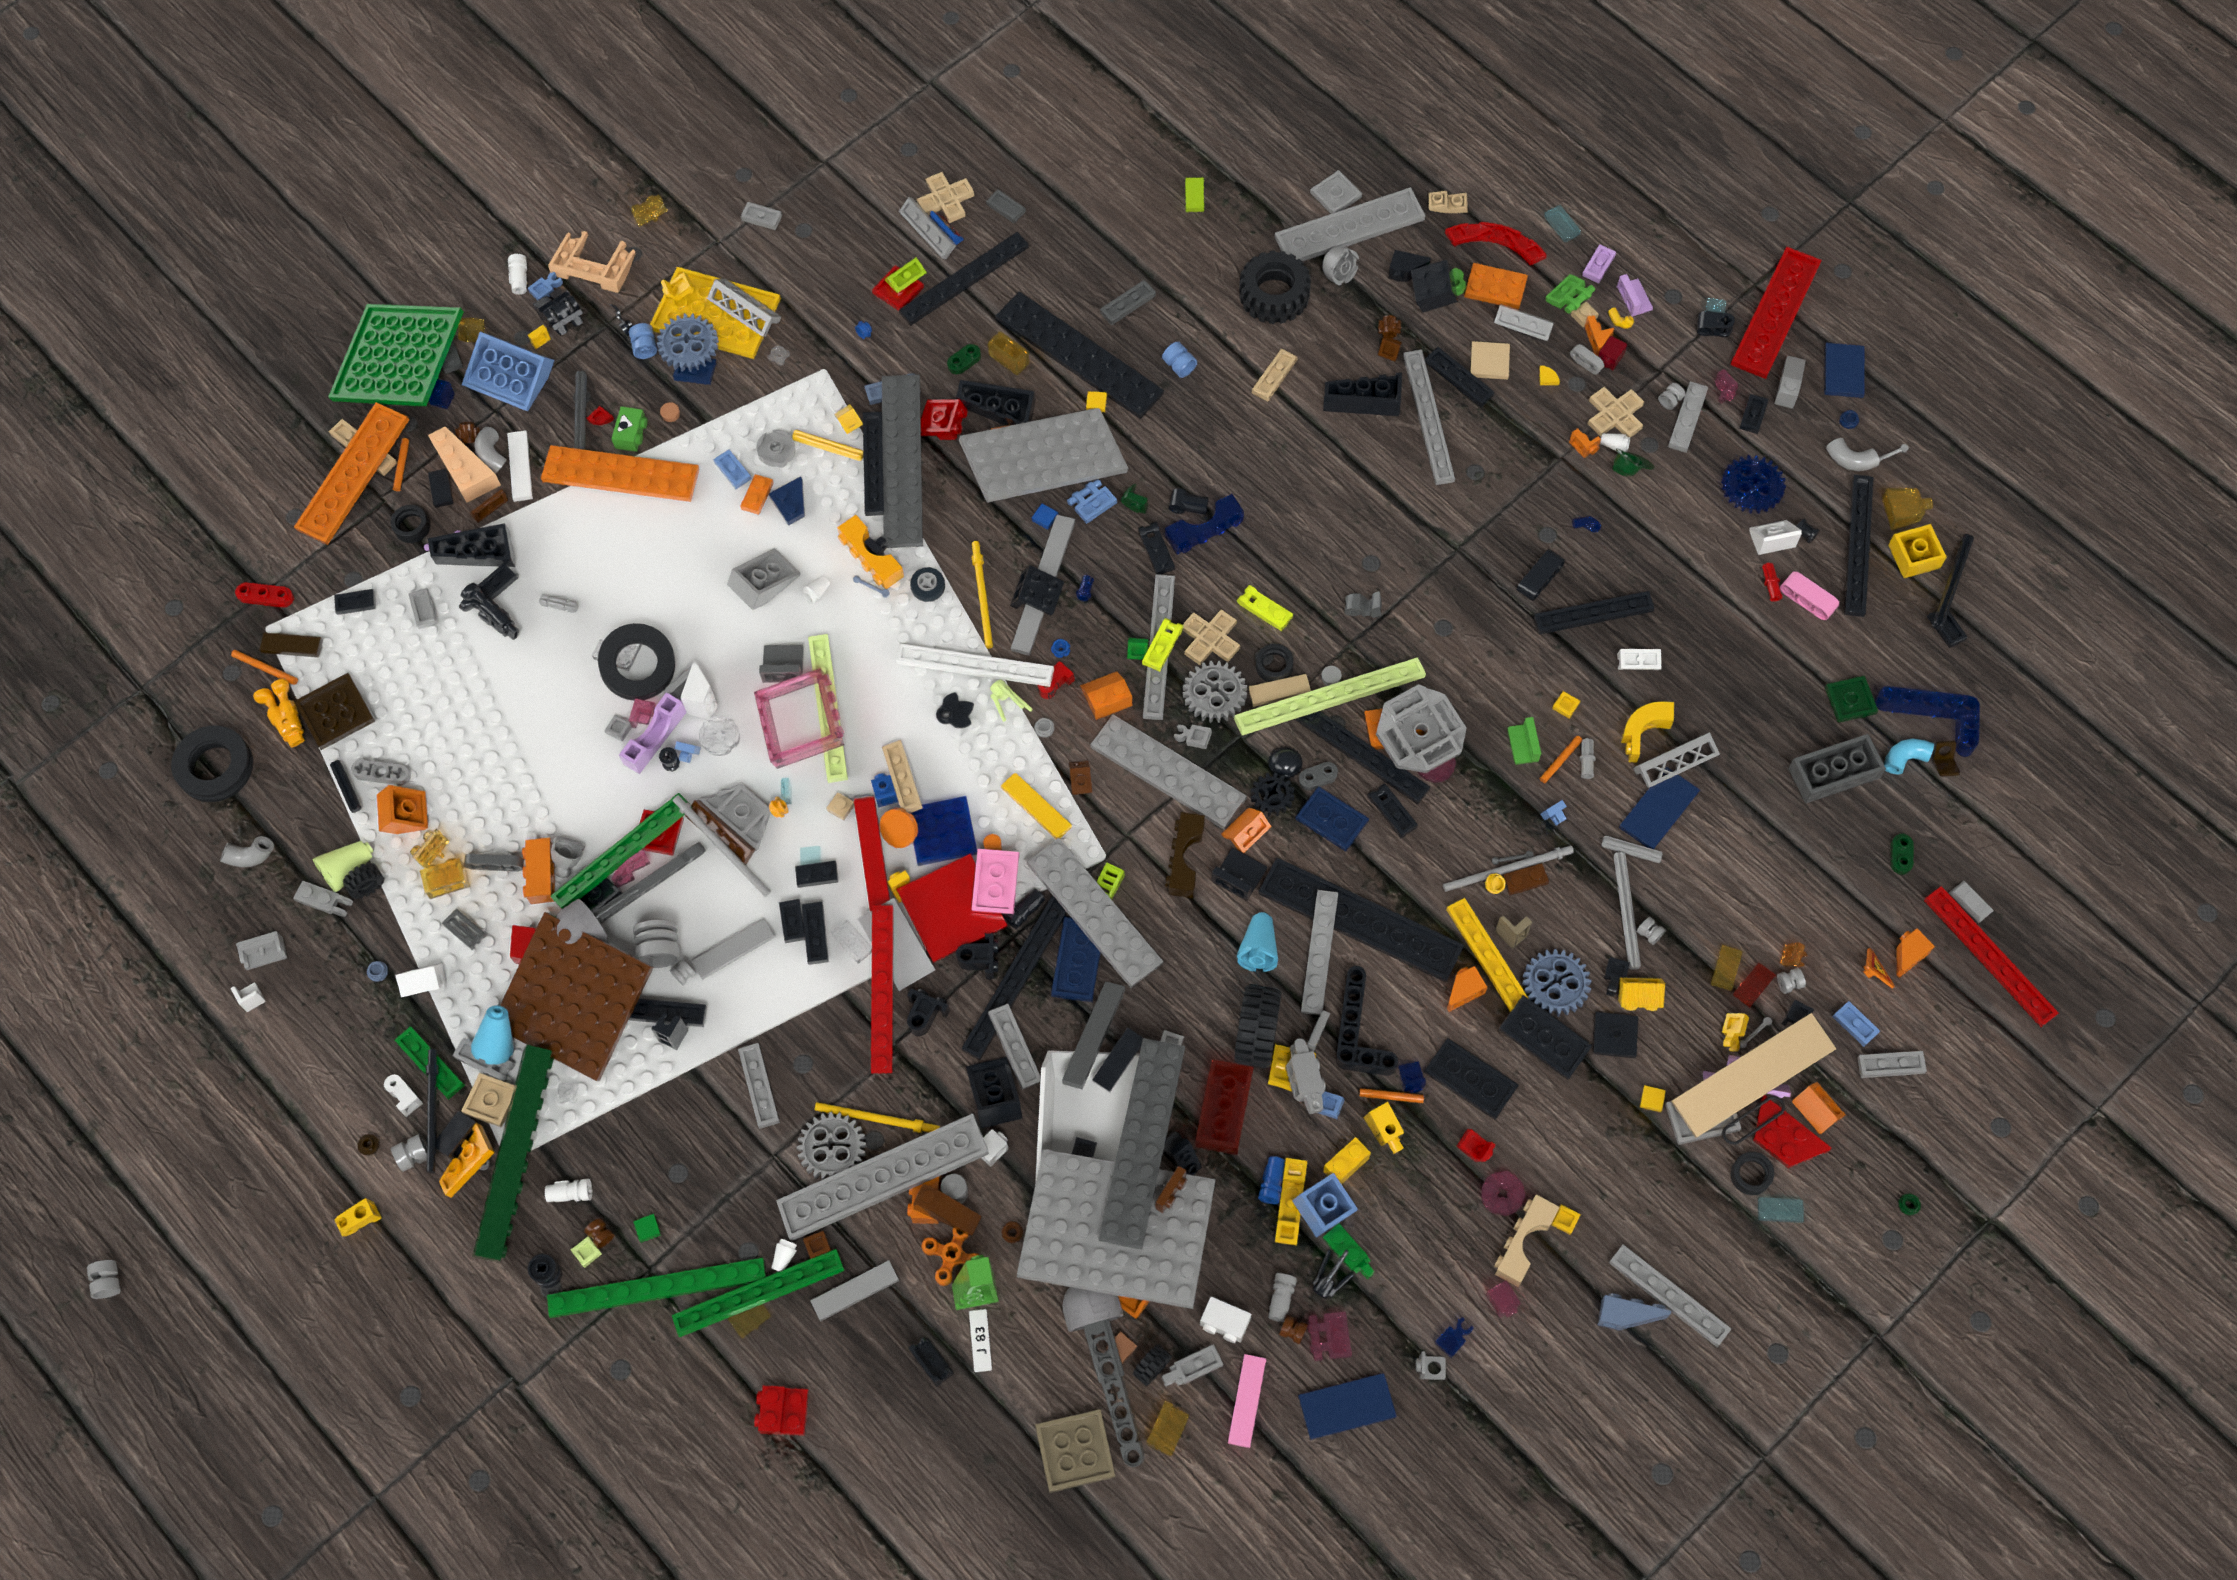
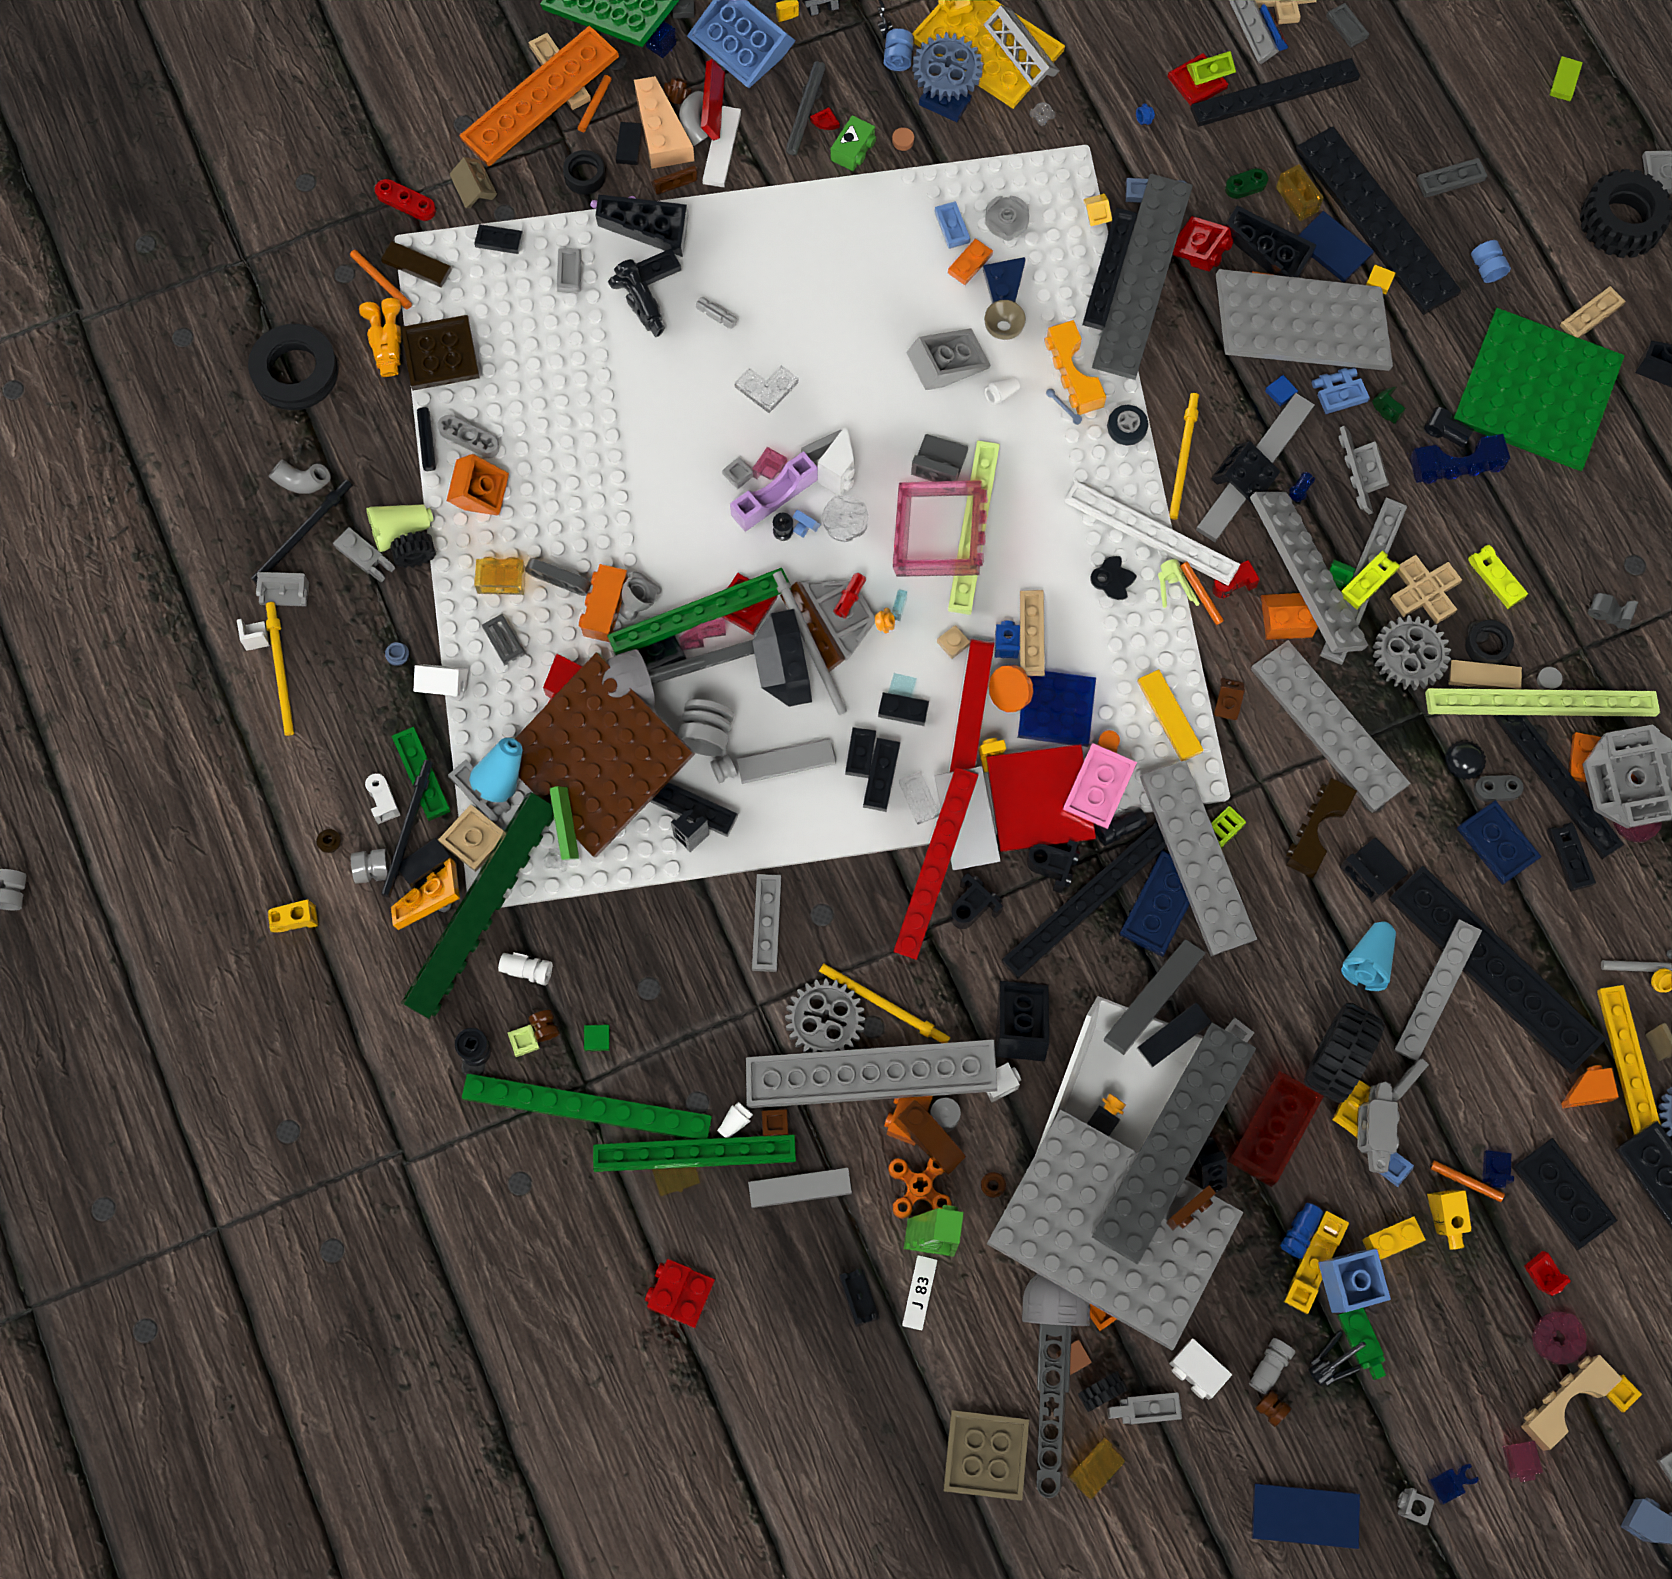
camera: 15 degrees right, 5 degrees up
(264, 984) = (273, 626): none -> yellow bar
(281, 862) = (332, 499): none -> black bar
(317, 561) = (472, 181): none -> dark tan panel
(431, 848) = (494, 539): clear yellow hips -> none
(500, 430) = (712, 99): none -> red tile
(563, 1061) = (564, 823): none -> bright green tile
(620, 473) = (828, 190): orange plate -> none
(636, 634) = (785, 374): black tyre -> none
(702, 867) = (782, 659): none -> black wedge
(742, 796) = (849, 595): none -> red axle
(798, 525) = (1004, 311): none -> dark tan piece
(828, 445) = (1065, 232): yellow axle -> none
(876, 547) = (1084, 364): black tile -> none
(1015, 1046) = (1062, 978): light grey plate -> none
(1030, 699) = (1201, 592): none -> orange bar
(1044, 727) = (1206, 629): light grey plate -> none
(1052, 387) = (1336, 246): none -> dark blue tile
(1060, 643) = (1252, 540): blue plate -> none
(1087, 1132) = (1113, 1104): none -> light orange plate
(1111, 654) = (1309, 572): none -> light grey plate
(1132, 556) = (1366, 466): none -> light grey bracket
(1156, 549) = (1396, 468): black plate -> none
(1195, 737) = (1373, 696): light grey plate -> none
(1247, 829) = (1398, 821): orange panel -> none
(1247, 1401) = (1195, 1469): bright pink tile -> none
(1250, 448) = (1539, 389): none -> green plate
(1275, 802) = (1434, 783): black gear -> none
(1336, 1333) = (1319, 1434): clear pink plate -> none
(1352, 1027) = (1449, 1091): black beam -> none

